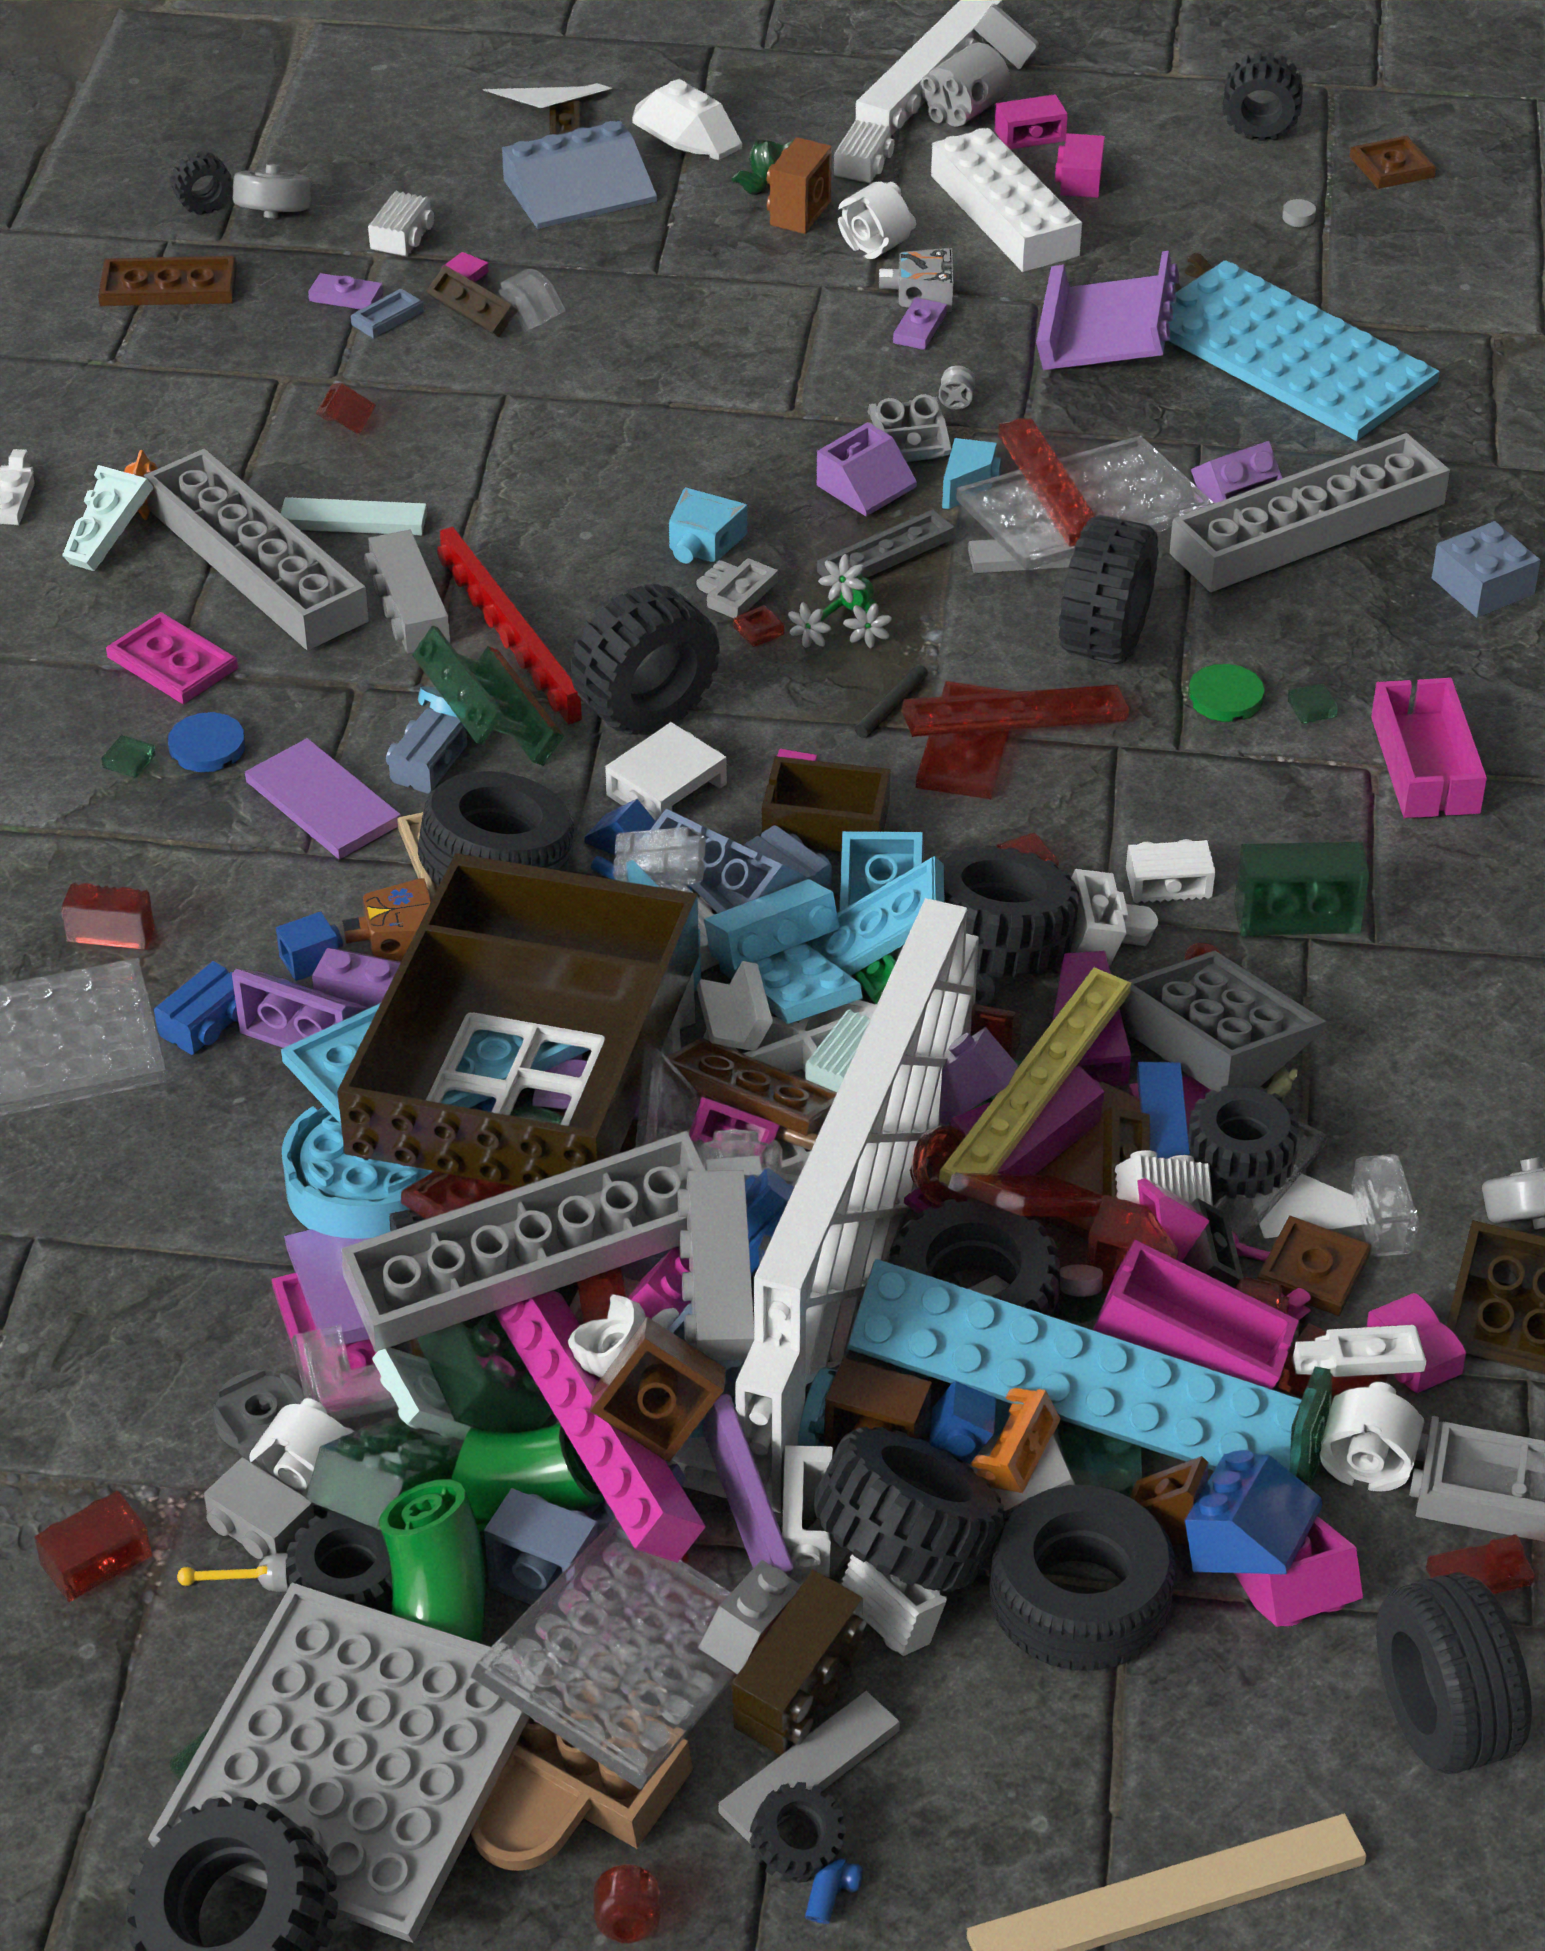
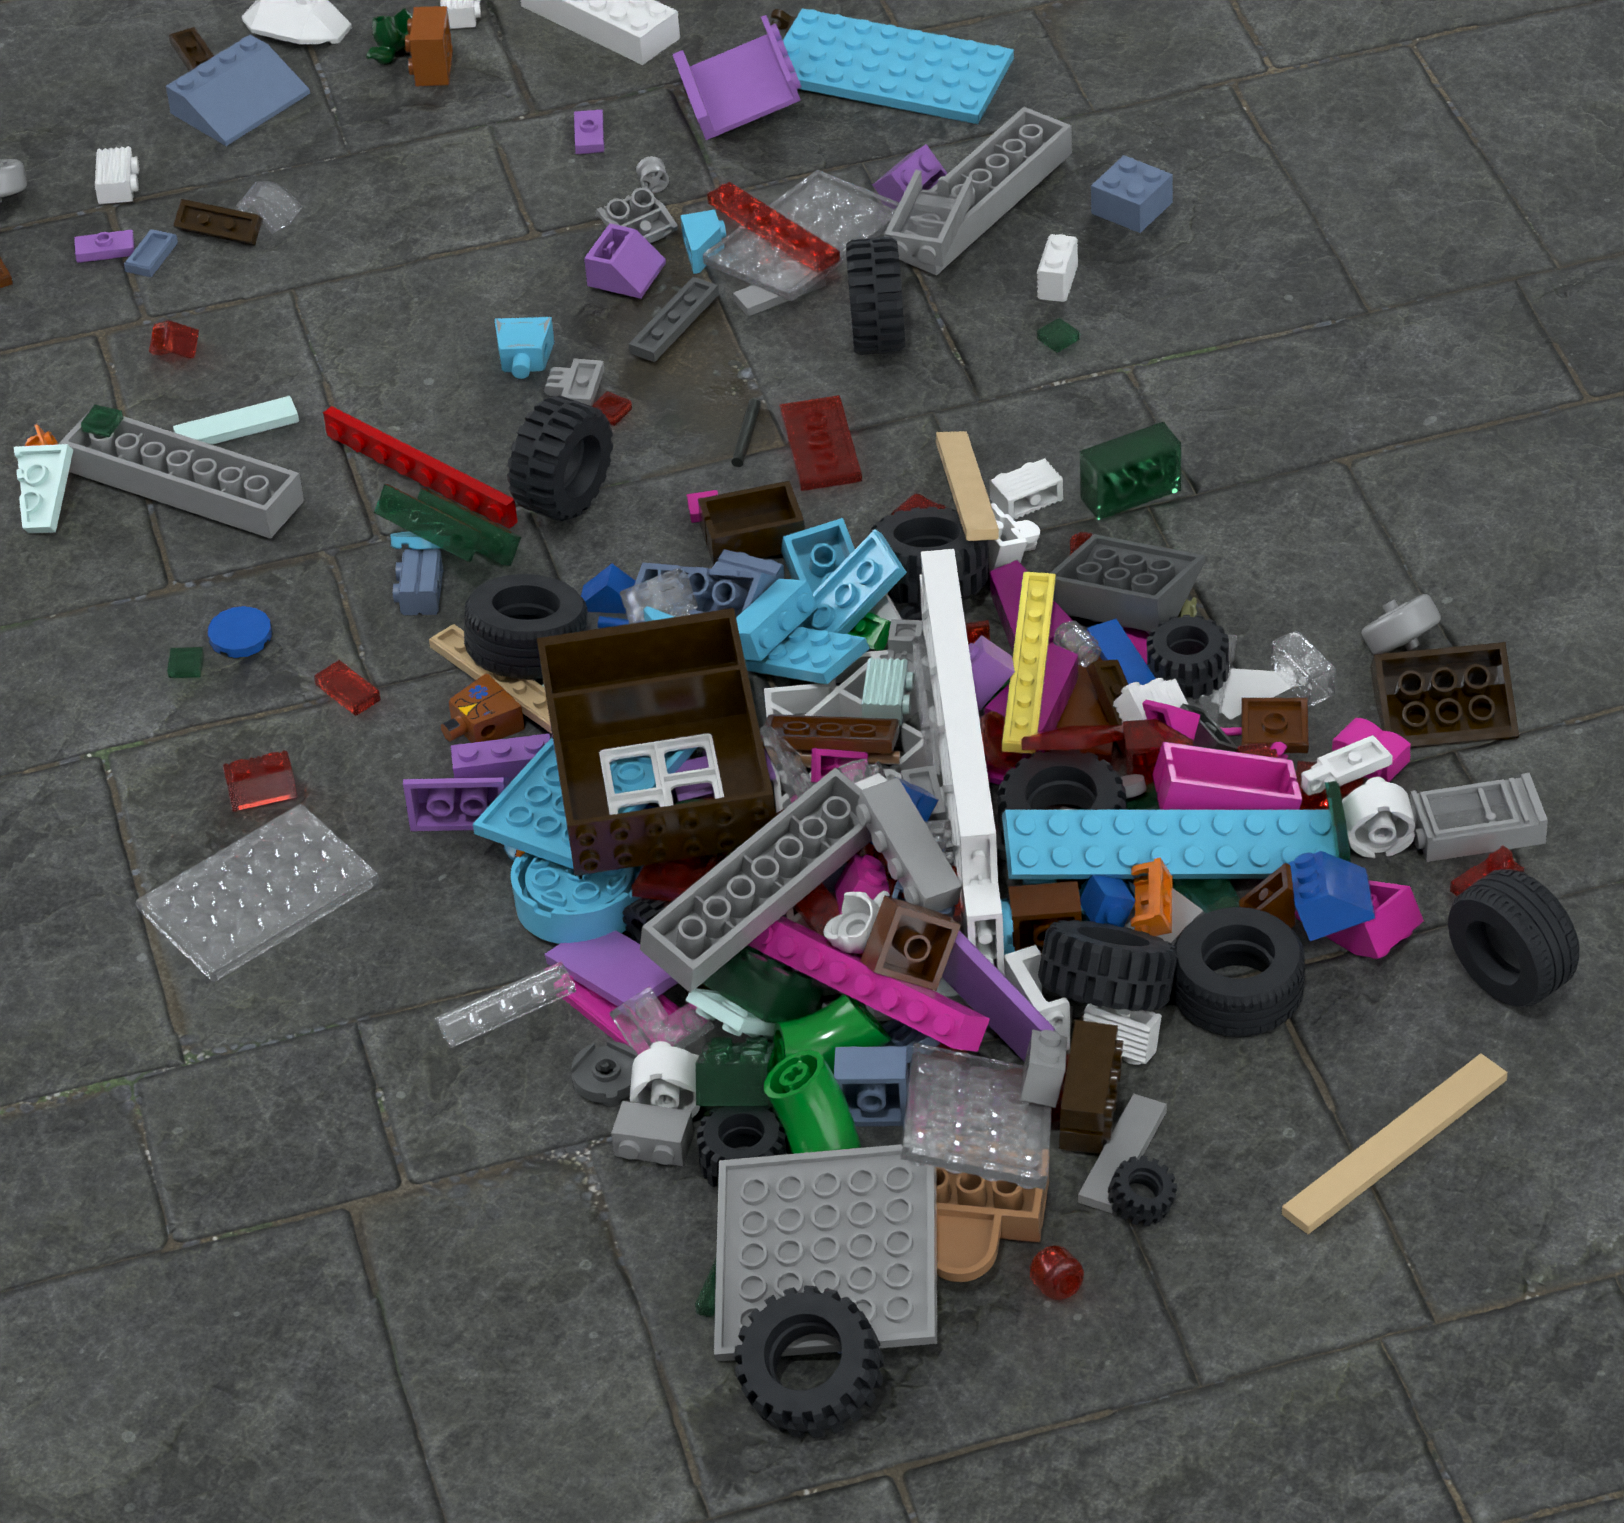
camera: 20 degrees left, 0 degrees up
(93, 1545) = (552, 1194): clear red brick -> none
(172, 658) = (166, 578): dark pink tile -> none
(198, 1009) = (377, 821): blue brick -> none
(199, 465) = (102, 420): none -> clear green tile
(200, 1282) = (505, 1004): none -> clear tile
(270, 1573) = (685, 1168): hinge -> none
(277, 843) = (347, 687): none -> clear red tile
(305, 942) = (426, 751): blue brick -> none
(323, 798) = (359, 643): medium lavender tile -> none
(405, 588) = (324, 467): light grey brick -> none
(468, 266) = (191, 192): dark pink tile -> none
(548, 96) = (163, 30): white sticker -> none
(664, 770) = (613, 536): white panel -> none
(736, 1011) = (785, 685): white panel -> none
(828, 1884) = (1178, 1215): blue arm -> none
(855, 594) = (674, 362): light grey plant -> none
(875, 219) = (509, 56): white brick -> none
(921, 275) = (571, 92): light grey torso -> none
(1014, 710) = (848, 409): clear red plate -> none
(1089, 844) = (967, 486): none -> tan tile
(1115, 1076) = (1077, 640): none -> clear brick
(1218, 523) = (928, 220): none -> light grey door
(1226, 692) = (990, 347): green tile -> none
(1351, 626) = (1057, 268): none -> white brick
(1430, 750) = (1163, 340): dark pink piece -> none

